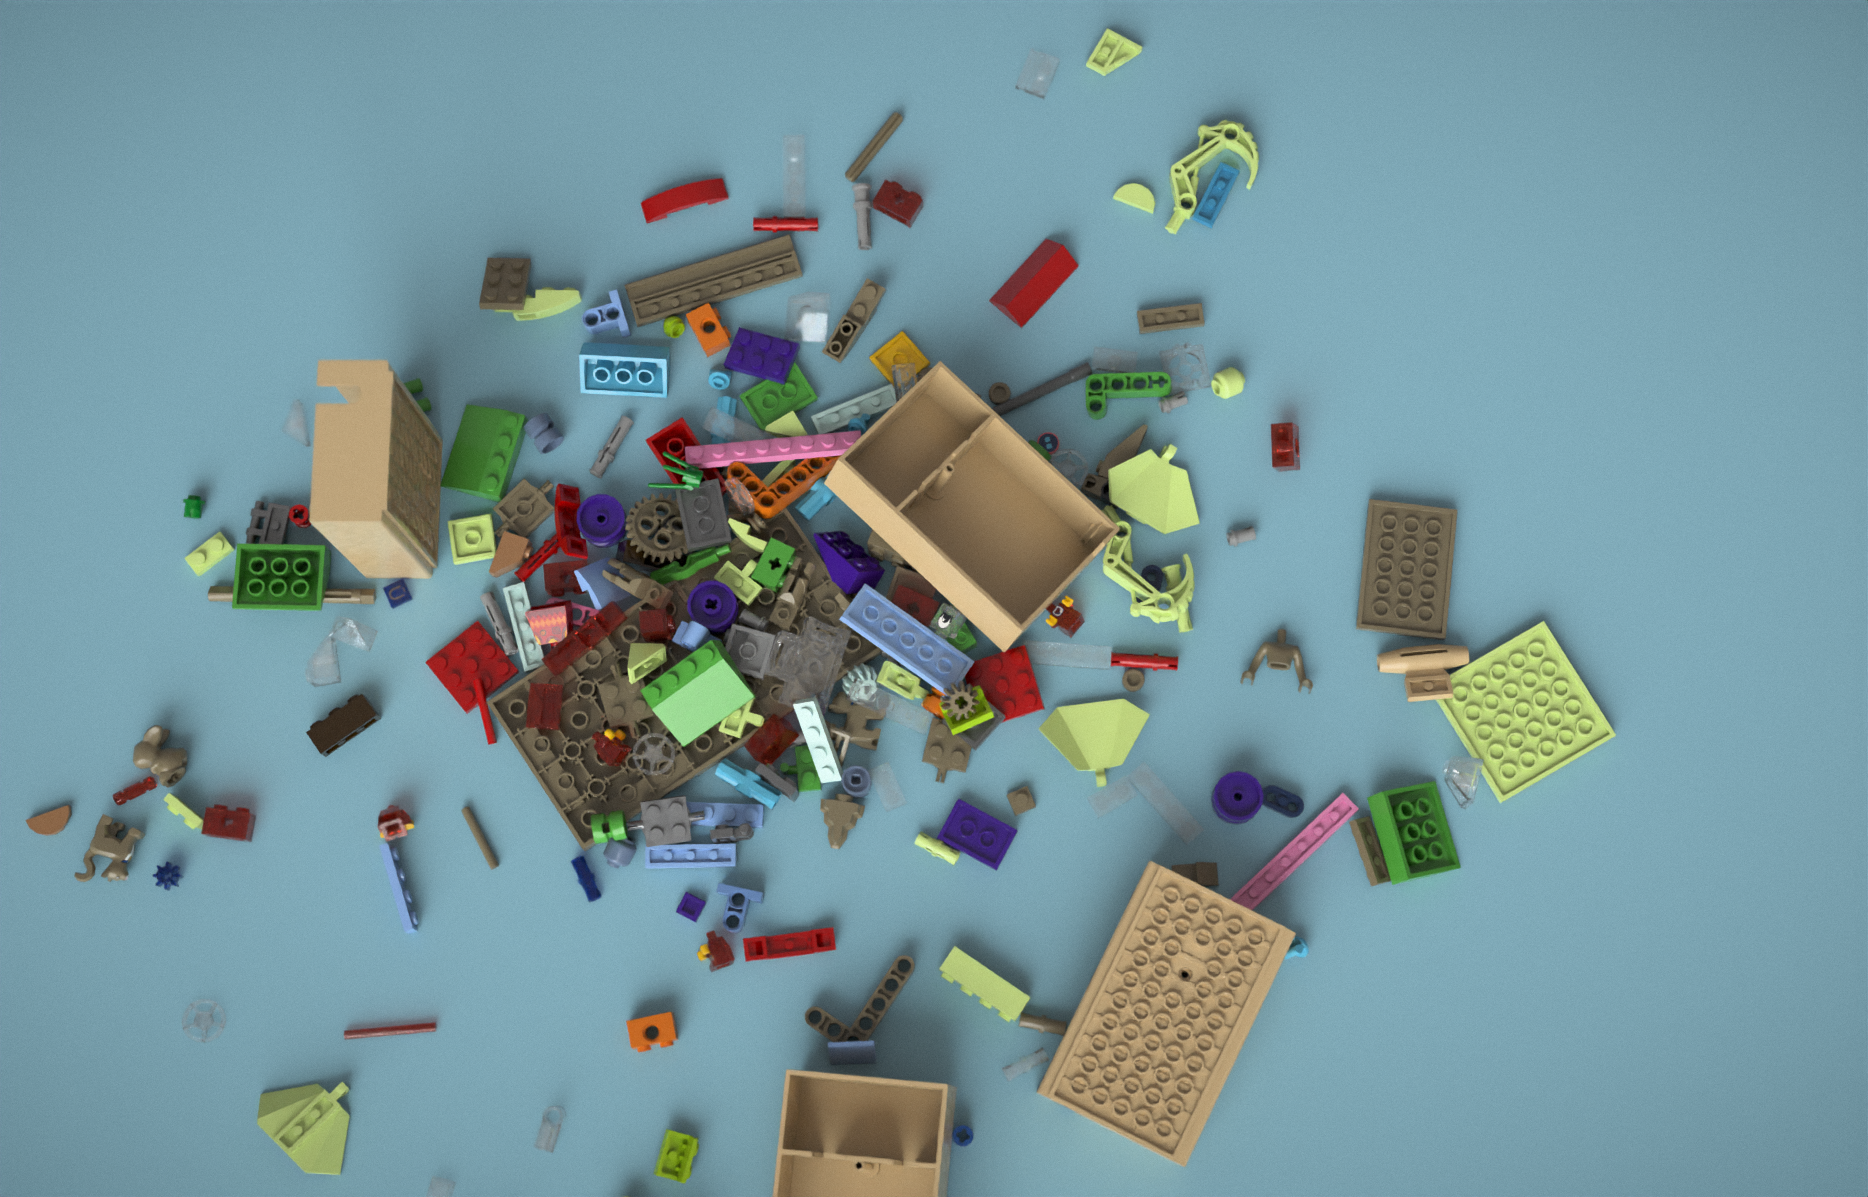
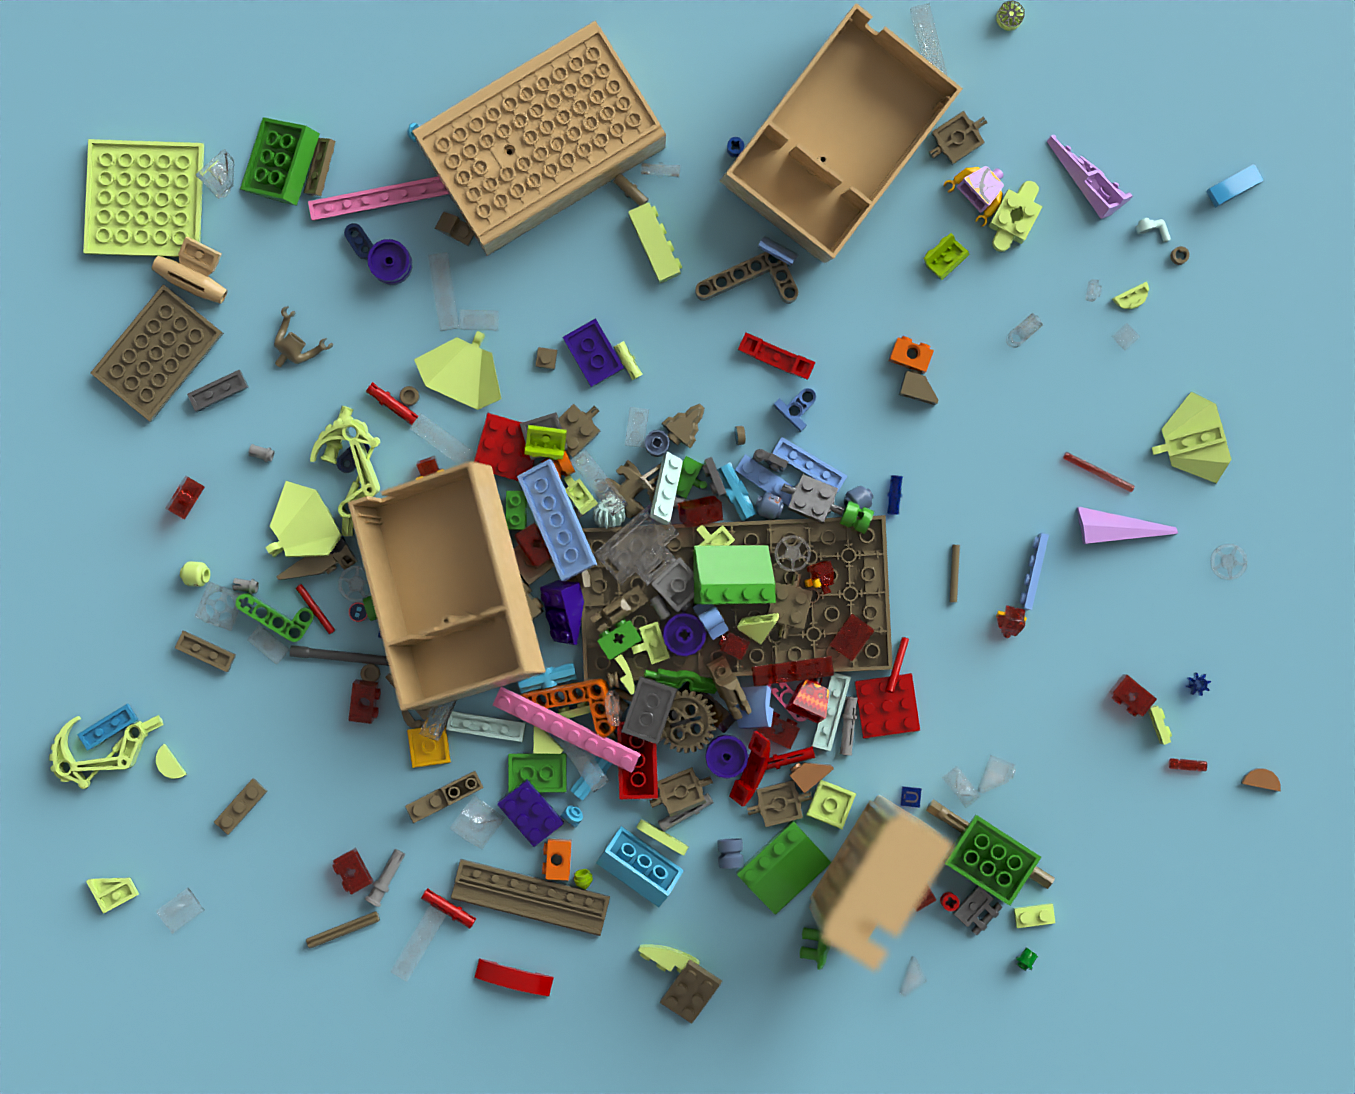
camera: 155 degrees left, 10 degrees up
(107, 845) = (1229, 733): dark tan animal -> none
(166, 763) = (1154, 771): dark tan animal -> none
(343, 724) = (1007, 719): dark brown brick -> none
(348, 978) = (1105, 527): none -> lavender wedge
(602, 314) = (631, 921): light blue tile -> none
(617, 409) = (662, 837): none -> yellowish green beam
(626, 461) = (681, 792): none -> dark tan plate
(626, 1001) = (917, 388): none -> dark tan slope
(691, 475) = (641, 743): green plant -> none
(691, 907) = (831, 428): dark purple tile -> none
(706, 789) = (769, 506): none -> sand blue head
(717, 951) = (831, 382): clear red piece -> none
(778, 842) = (740, 435): none -> dark tan tile
(859, 423) = (491, 711): medium azure plate -> none
(948, 621) = (518, 515): clear brick -> none
(964, 707) = (546, 442): dark tan gear -> none
(991, 373) = (358, 711): none -> clear red brick
(1034, 282) = (289, 744): red slope -> none
(1043, 199) = (240, 806): none -> dark tan plate
(1091, 421) = (316, 610): none -> red piece
(1323, 569) = (217, 390): none -> flat silver plate

